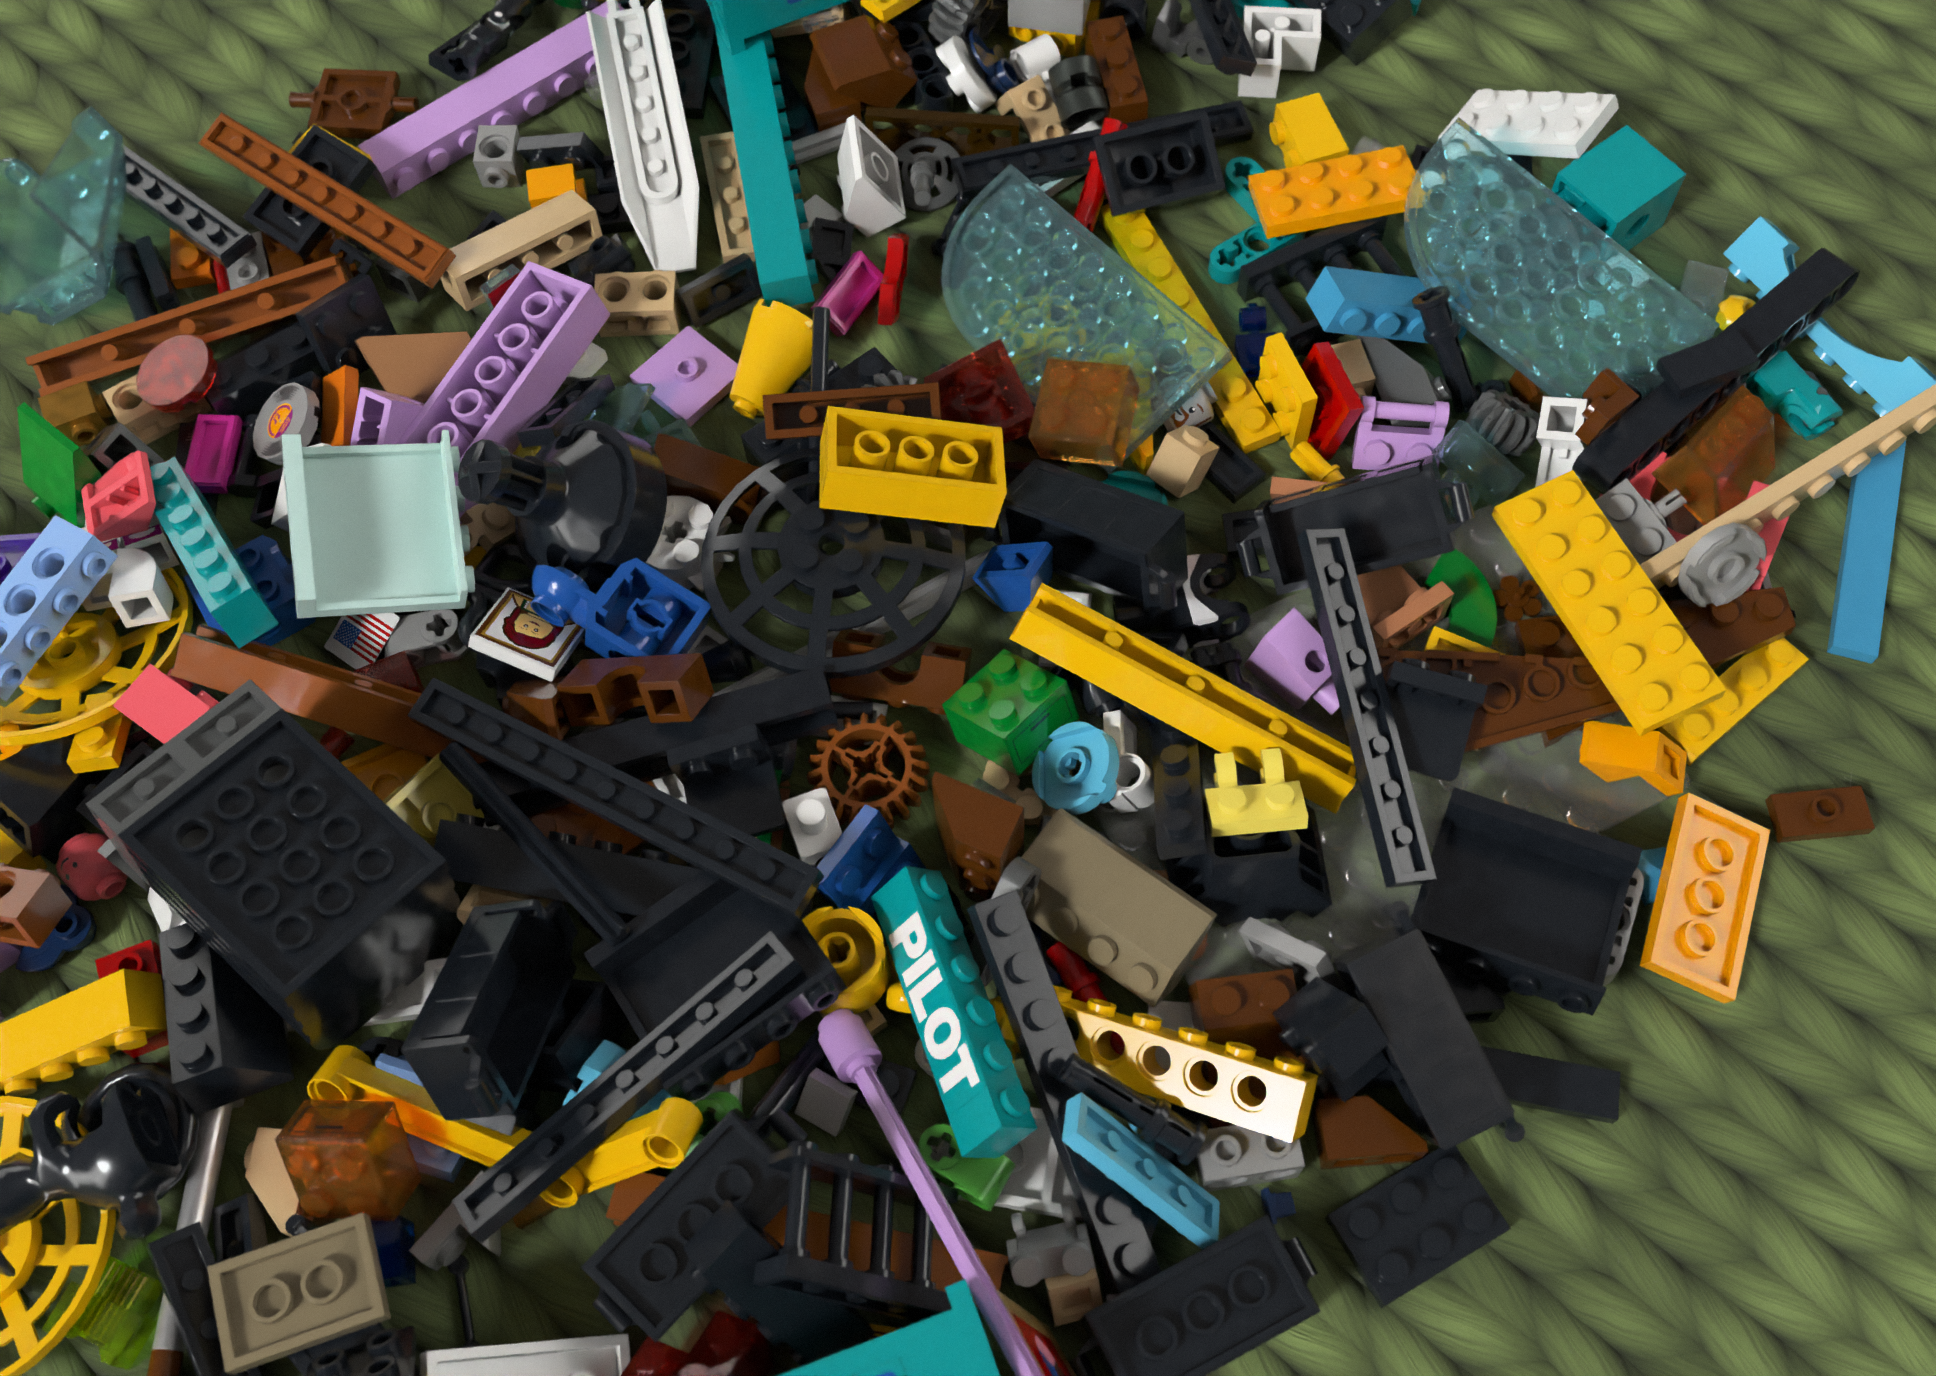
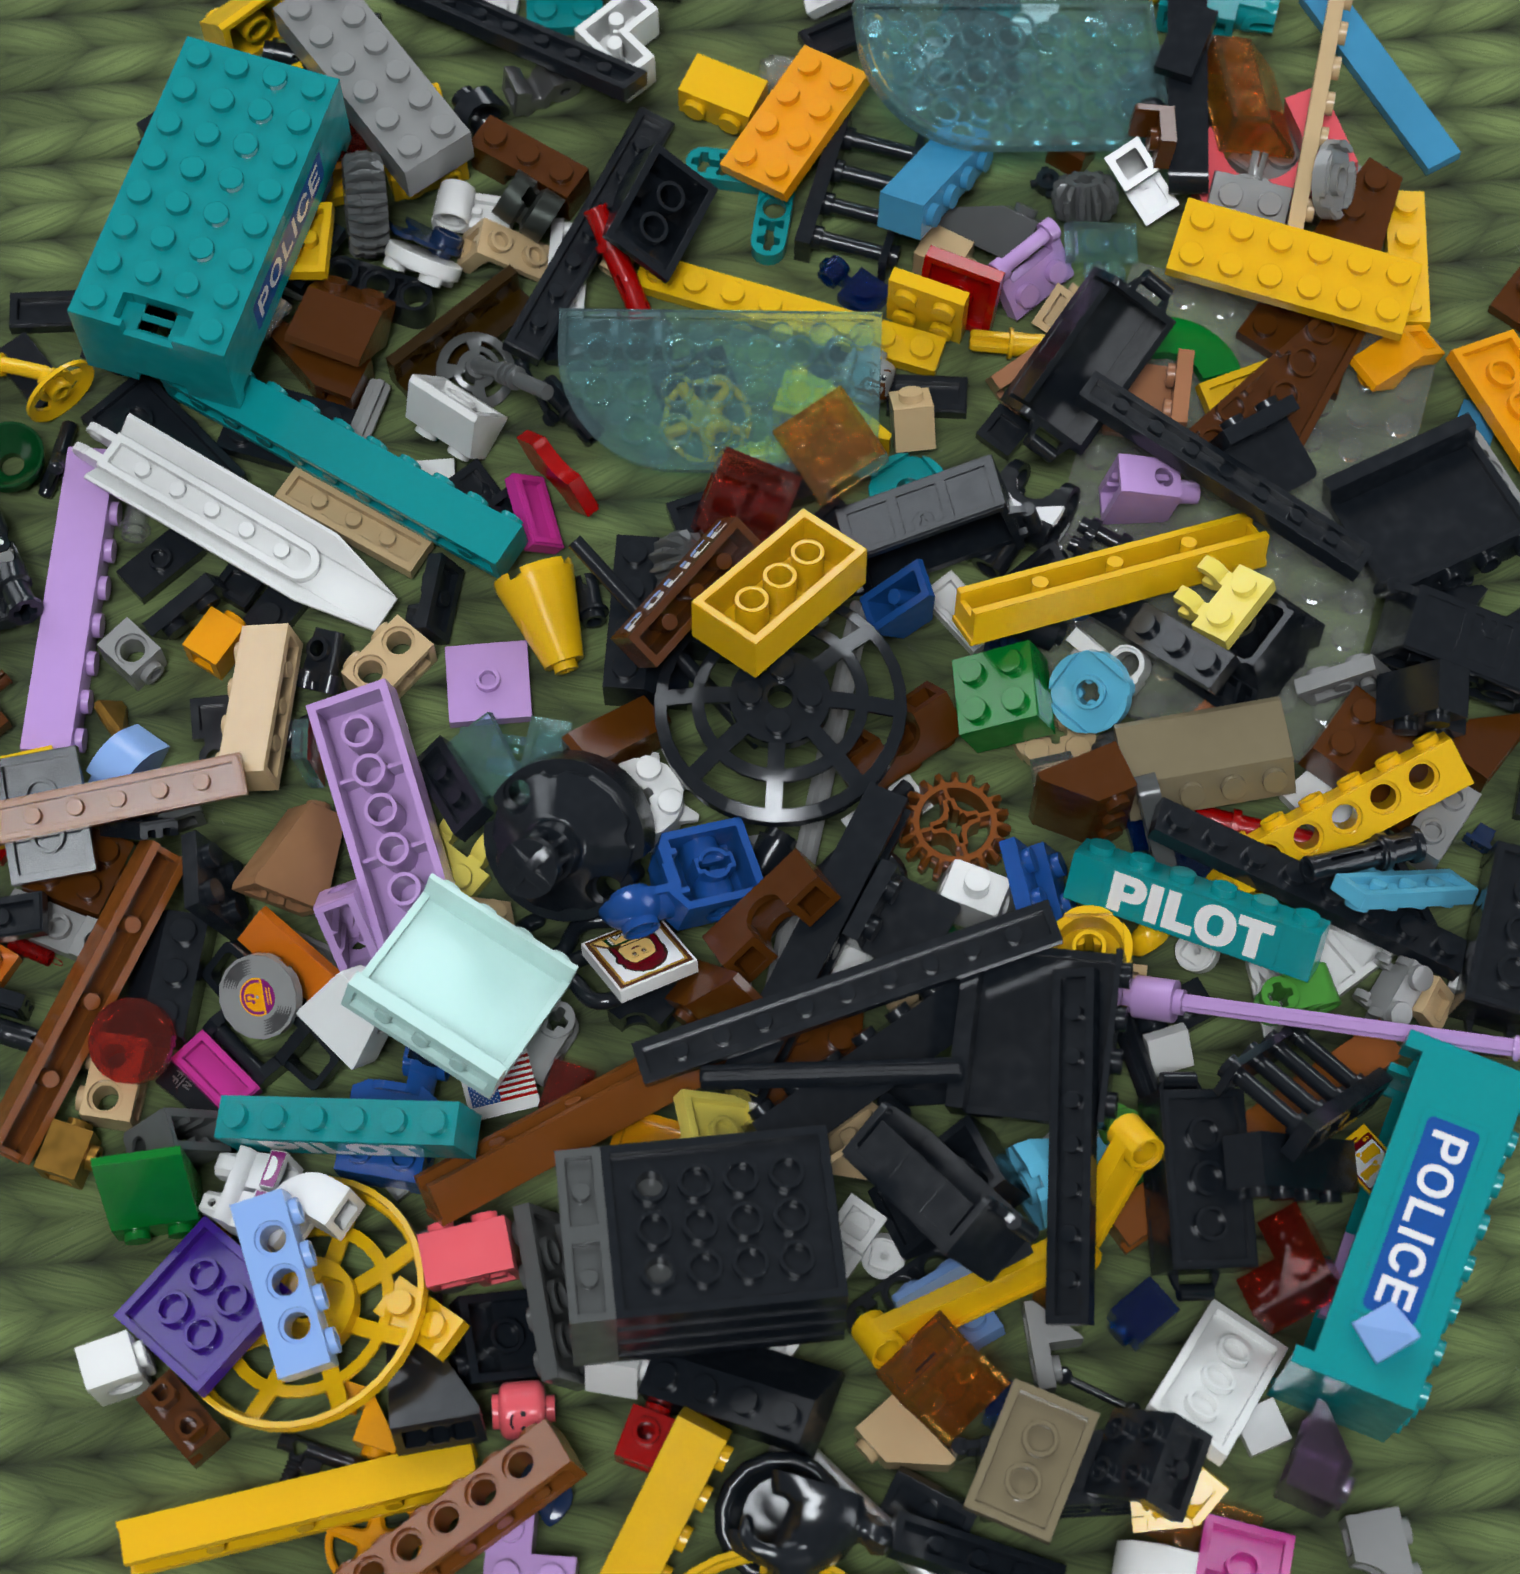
camera: 50 degrees left, 5 degrees up
(120, 499) = (231, 1153): coral slope -> none
(413, 205) = (127, 753): none -> light blue brick
(440, 186) = (112, 715): none -> pearl gold slope
(557, 1284) = (1141, 1315): none -> clear blue brick
(580, 117) = (159, 564): none -> black plate
(1442, 333) = (992, 169): black pin -> none
(1517, 599) = (1219, 315): reddish brown plant -> none

